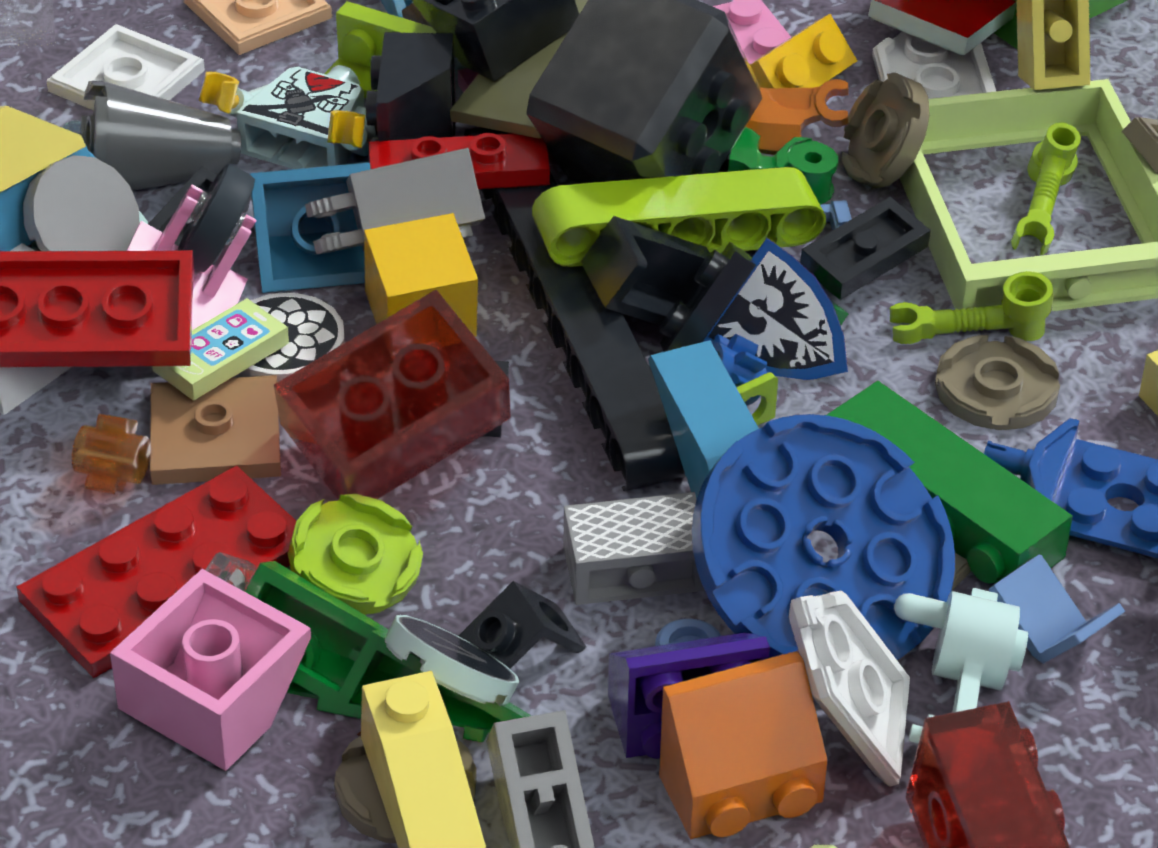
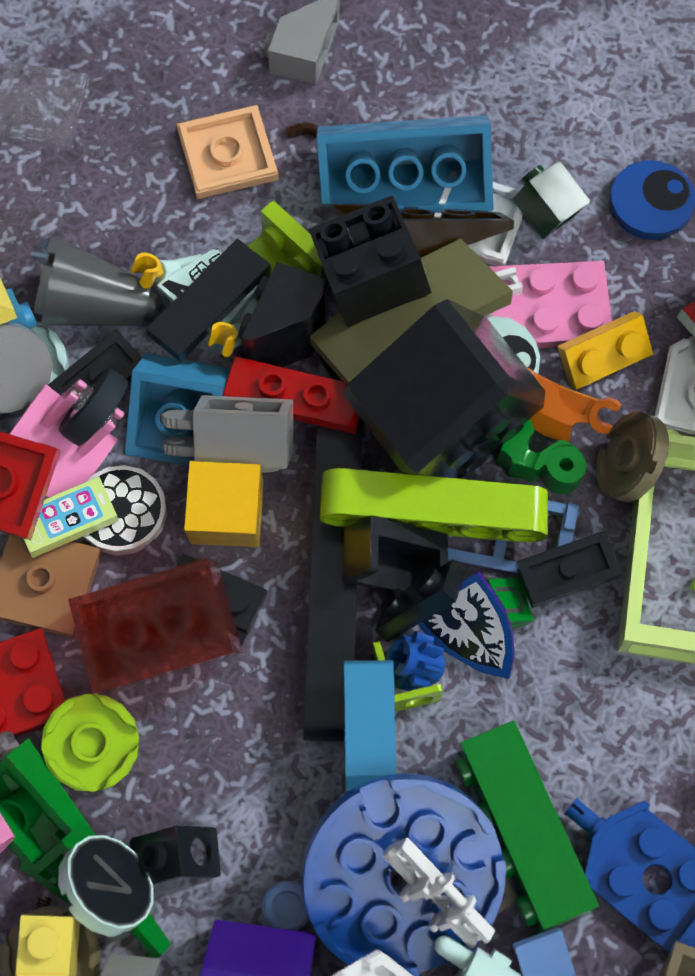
camera: 20 degrees right, 25 degrees up
(127, 61) = (106, 199): white tile -> none
(303, 109) = (208, 300): none -> black tile
(631, 548) = (277, 806): light grey panel -> none
(866, 517) = (430, 885): none -> white piece
(983, 395) = (605, 737): dark tan tile -> none
(1022, 311) = (637, 663): lime brick -> none

